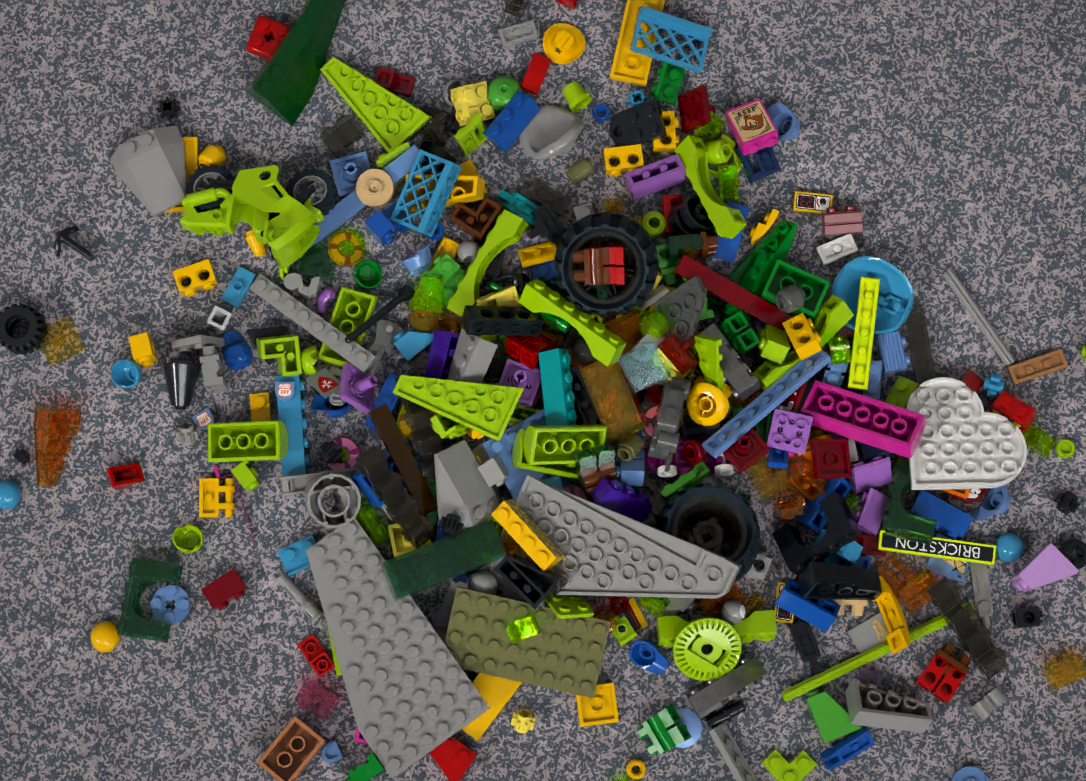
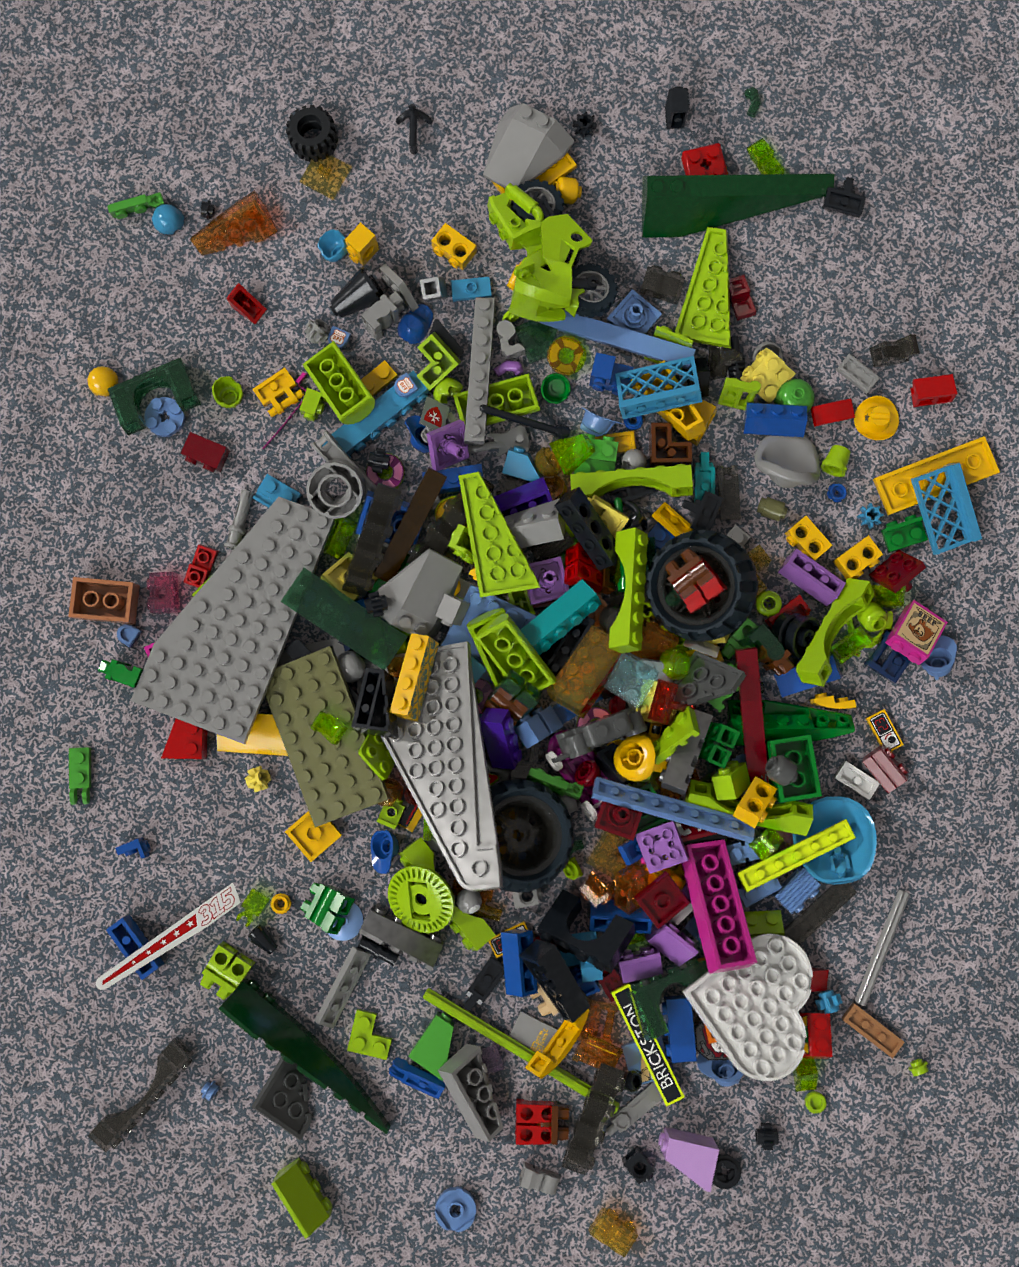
camera: 60 degrees right, 5 degrees up
(208, 28) = (677, 108): none -> black brick
(383, 188) = (637, 350): tan piece -> none
(630, 447) = (552, 715): olive brick -> none
(639, 124) = (850, 532): black plate -> none
(763, 516) = (572, 869): none -> lime plate
(958, 577) = (633, 1081): none -> black cone
(1009, 547) = (692, 1108): dark azure hair -> none

